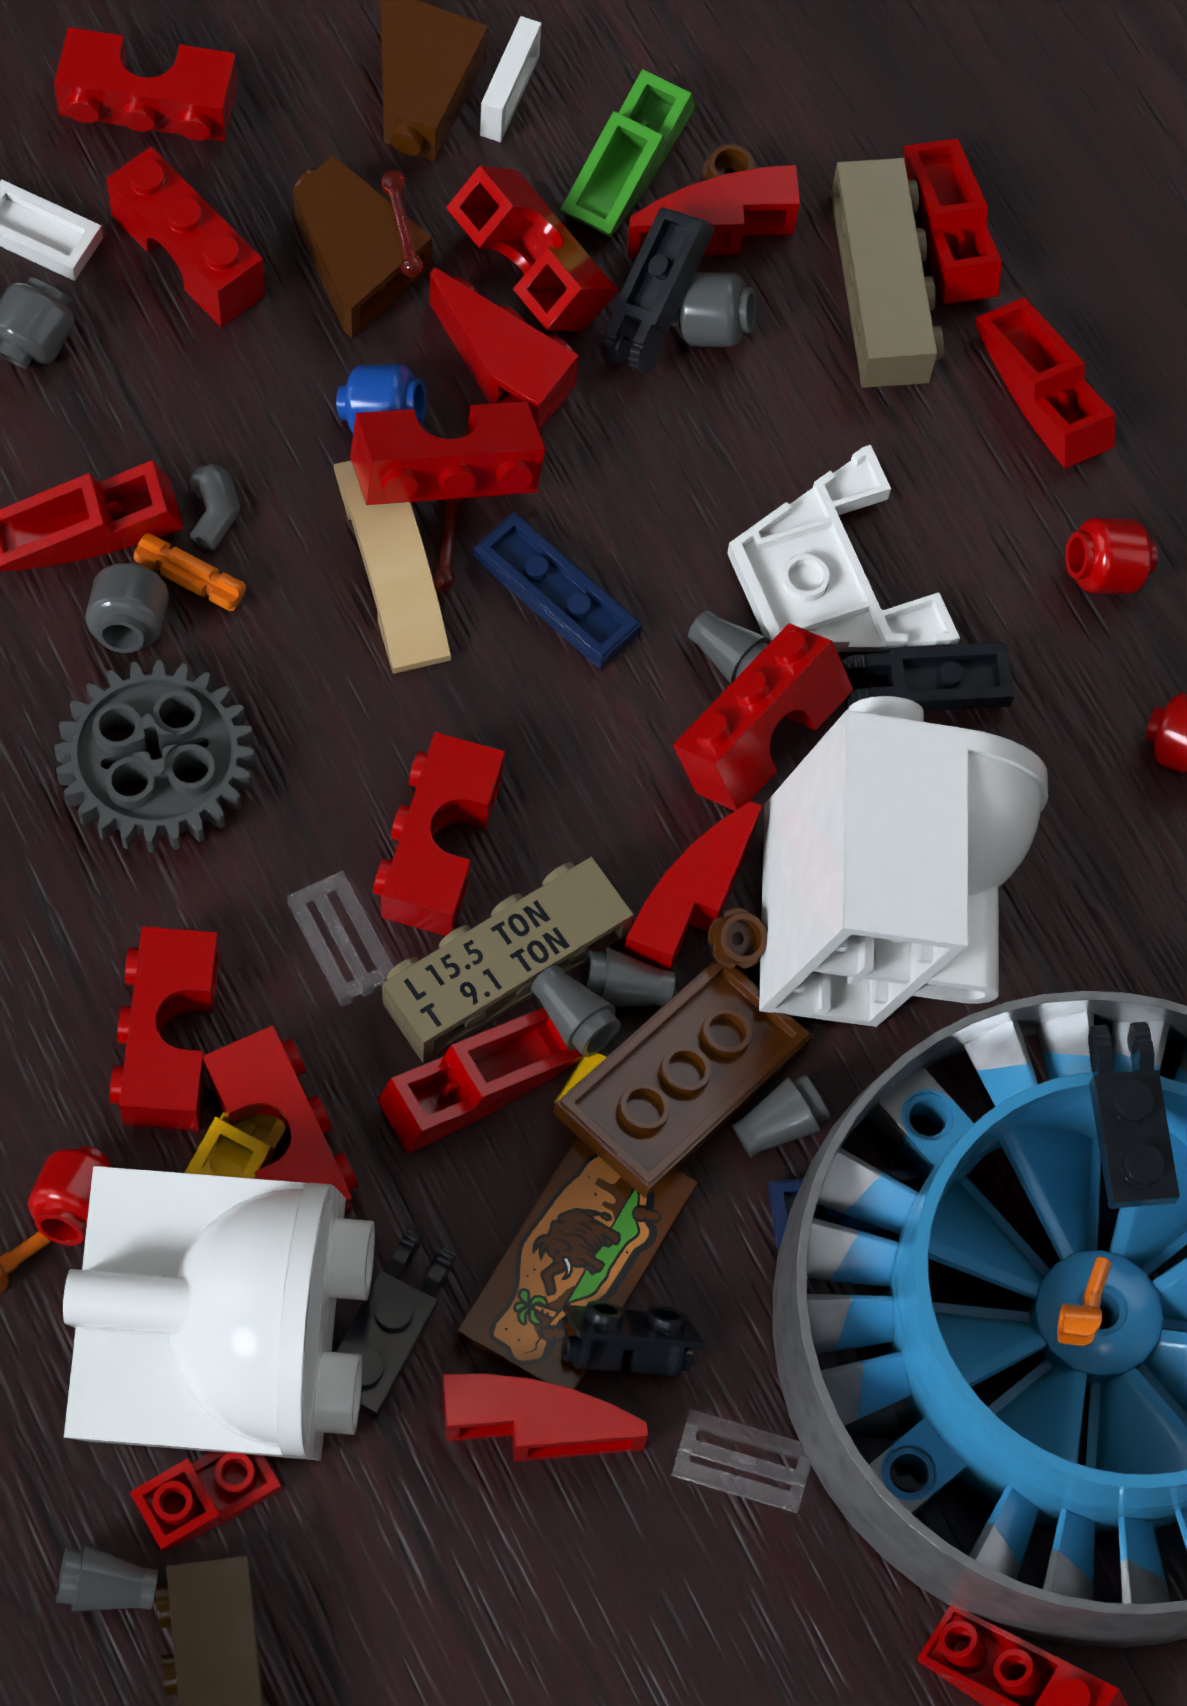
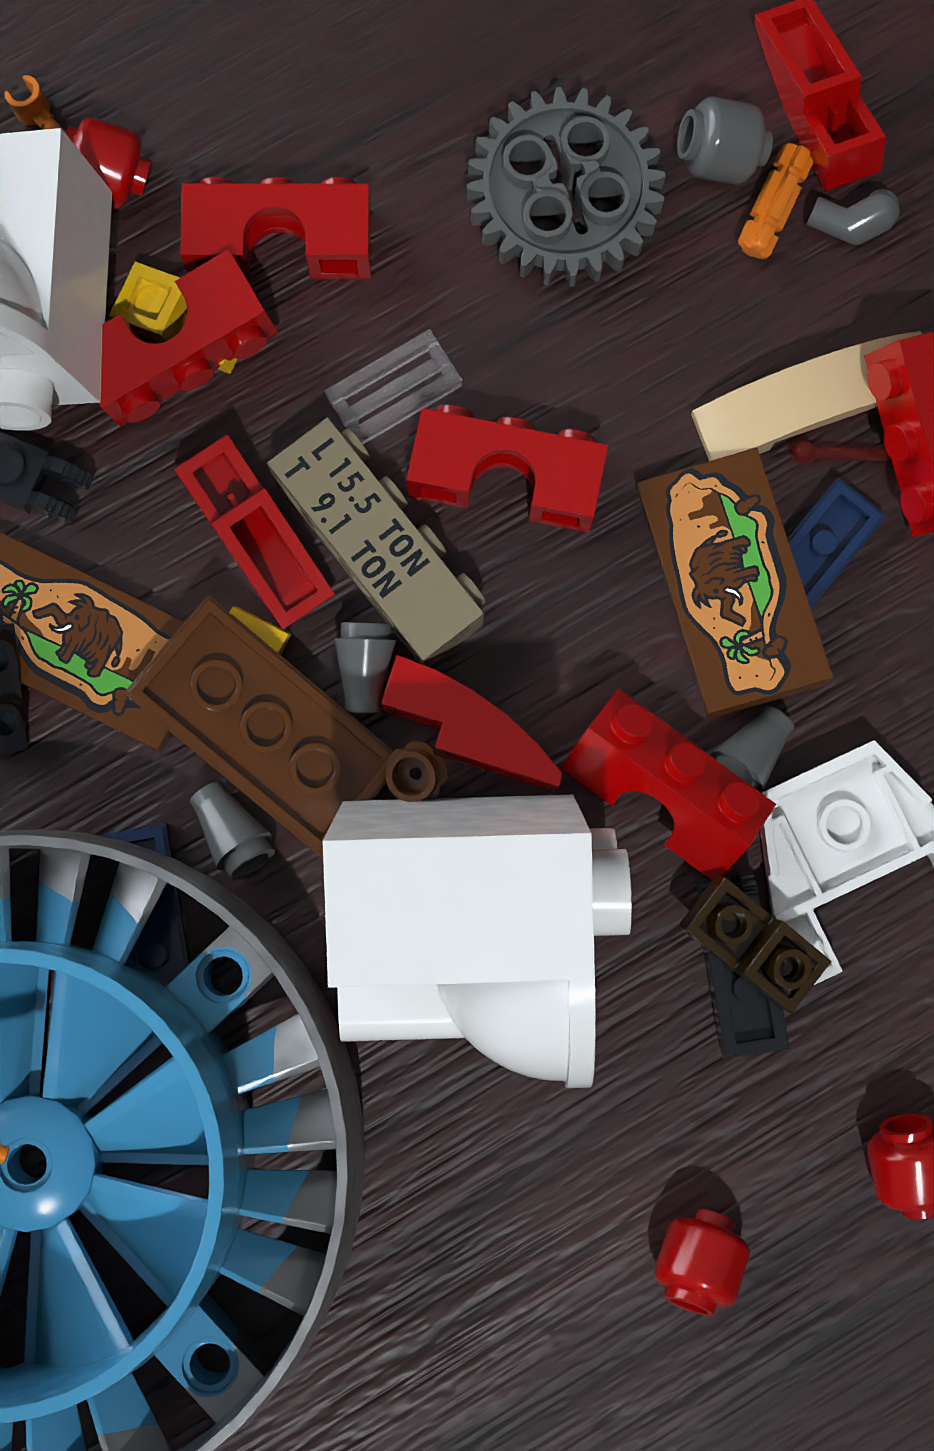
camera: 90 degrees right, 15 degrees up
(570, 644) = (734, 583): none -> tile
(578, 1014) = (316, 613): dark grey cone -> none
(916, 653) = (754, 943): none -> dark brown slope
(1131, 1122) = (154, 1184): black hinge -> none

